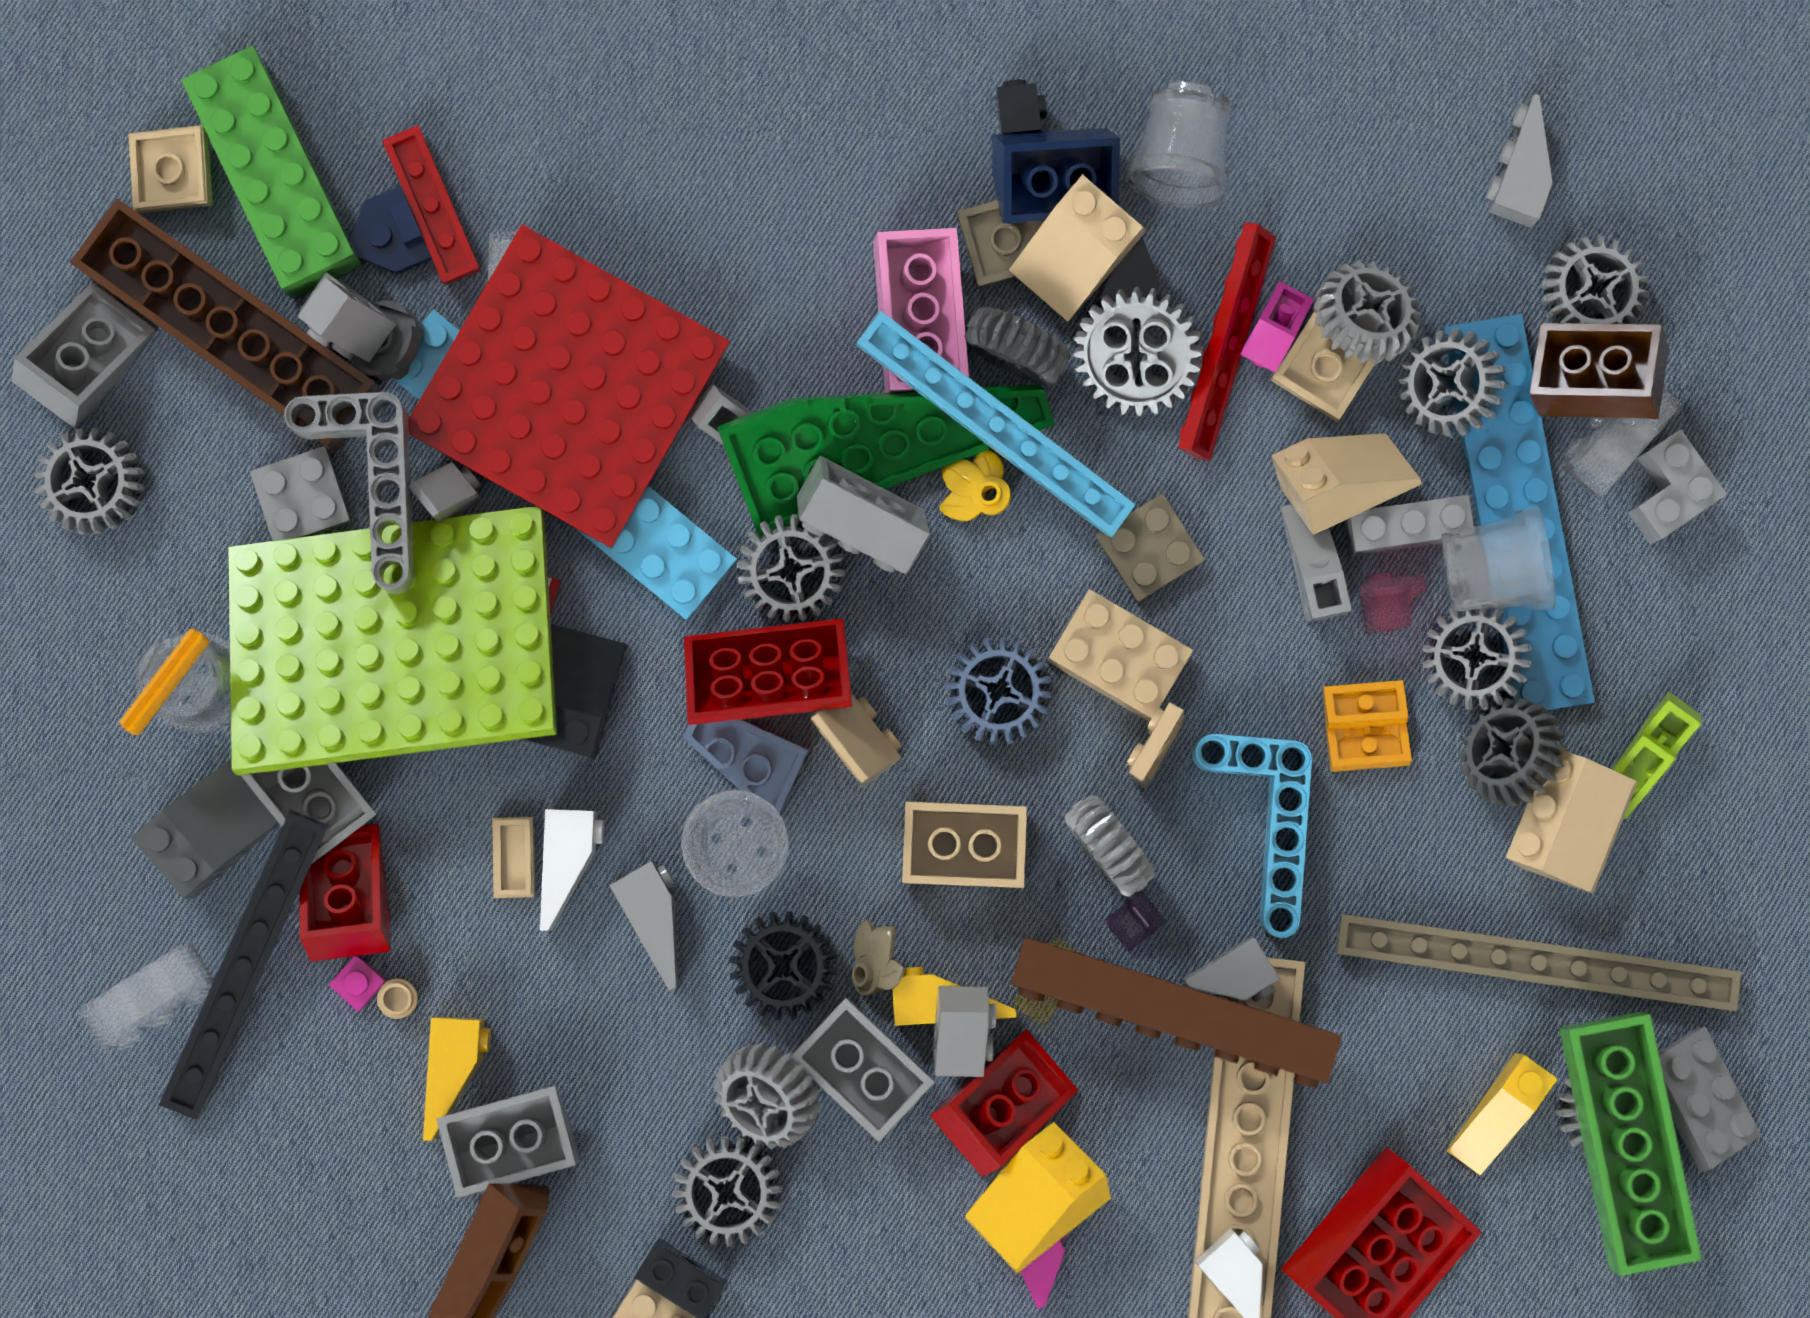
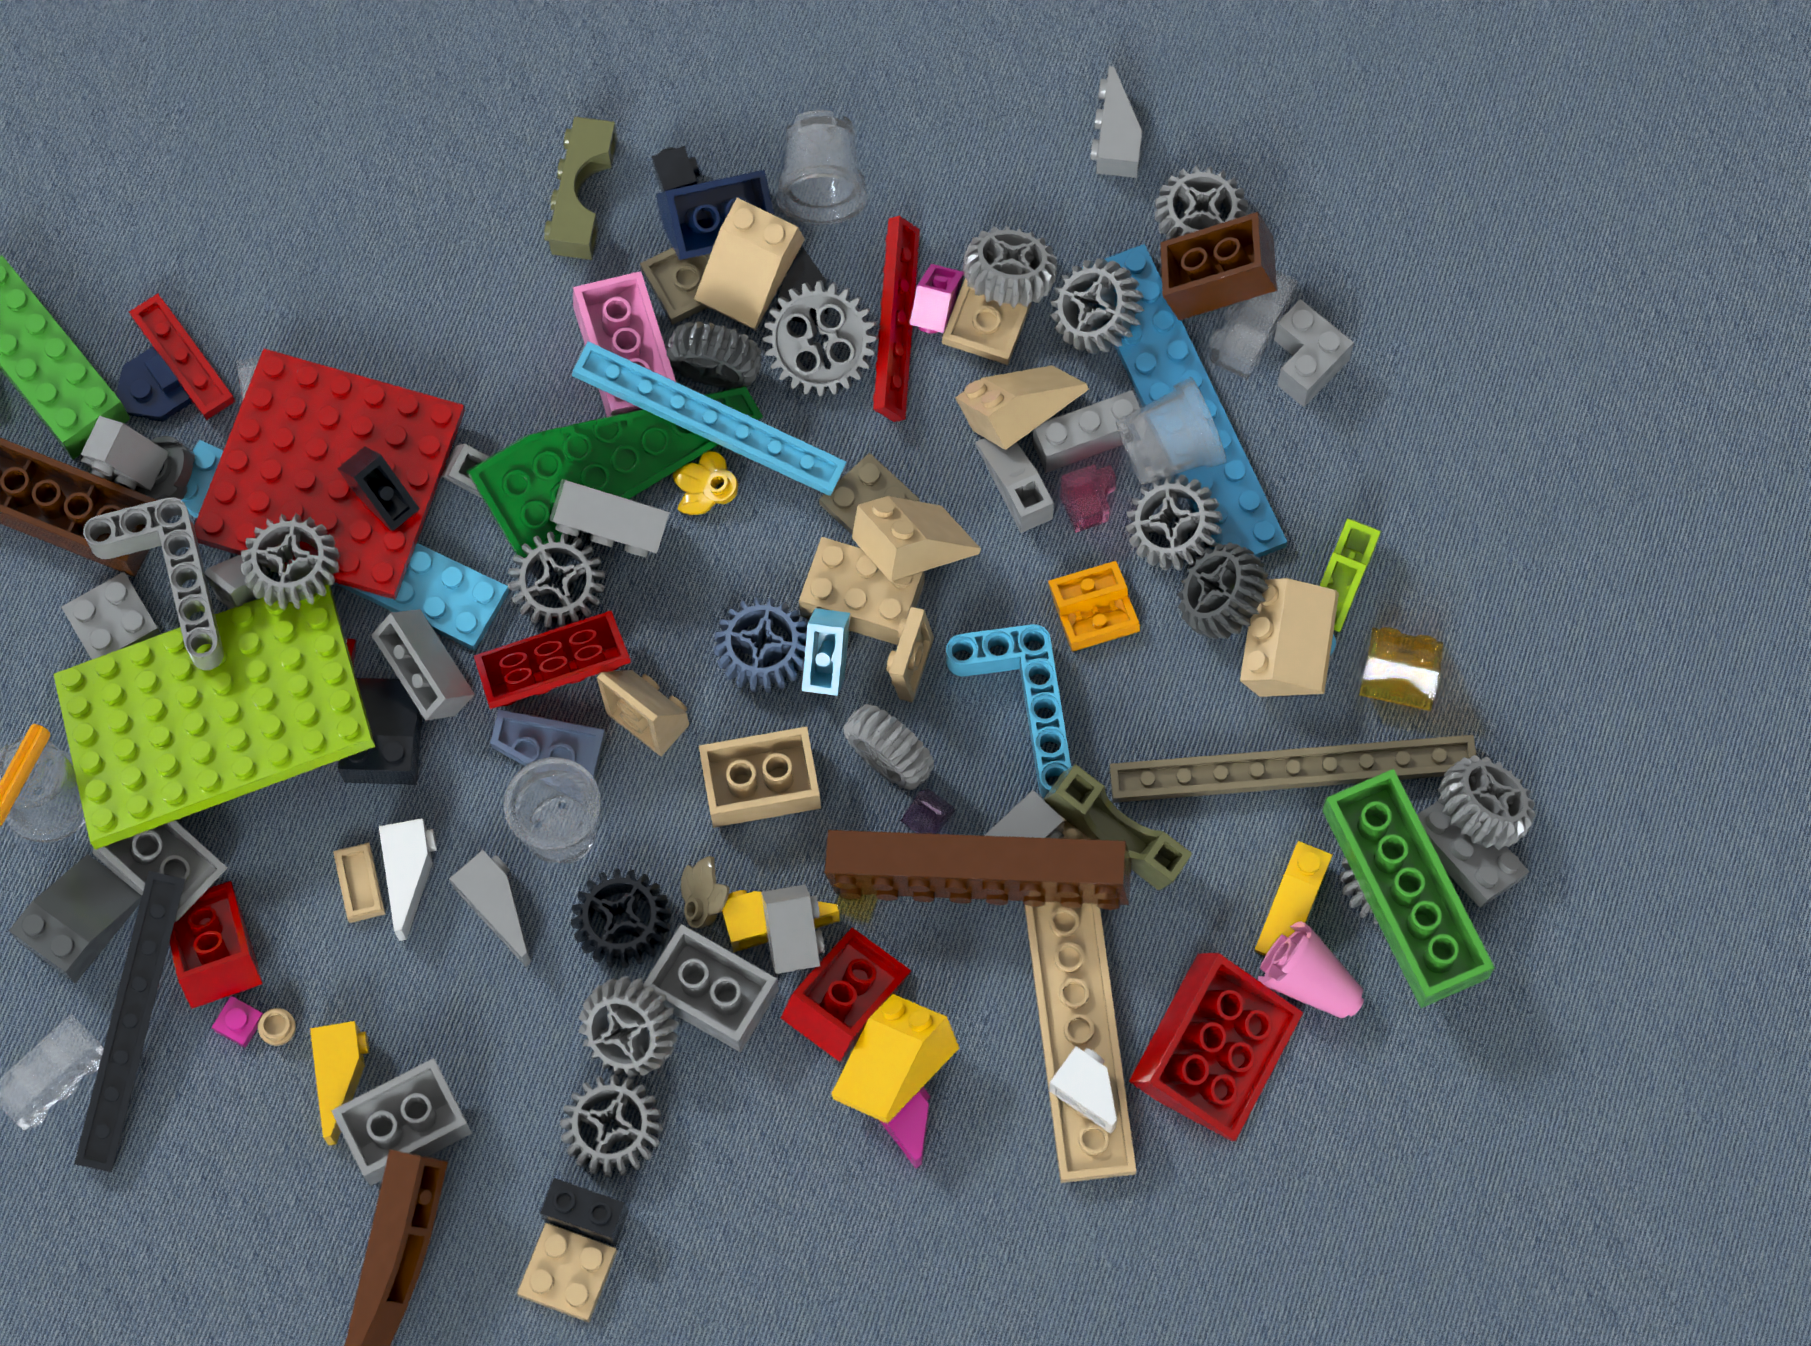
camera: 10 degrees left, 15 degrees down
(510, 476) = (264, 553): none -> light grey gear
(617, 426) = (378, 487): none -> black slope
(627, 632) = (422, 664): none -> light grey brick
(928, 60) = (589, 150): none -> olive arch
(1065, 722) = (826, 651): none -> medium azure brick
(1187, 612) = (909, 536): none -> tan slope
(1314, 976) = (1086, 806): none -> olive arch
(1498, 1197) = (1311, 973): none -> bright pink cone
(1683, 877) = (1402, 668): none -> clear yellow slope
(1737, 1056) = (1486, 802): none -> light grey gear

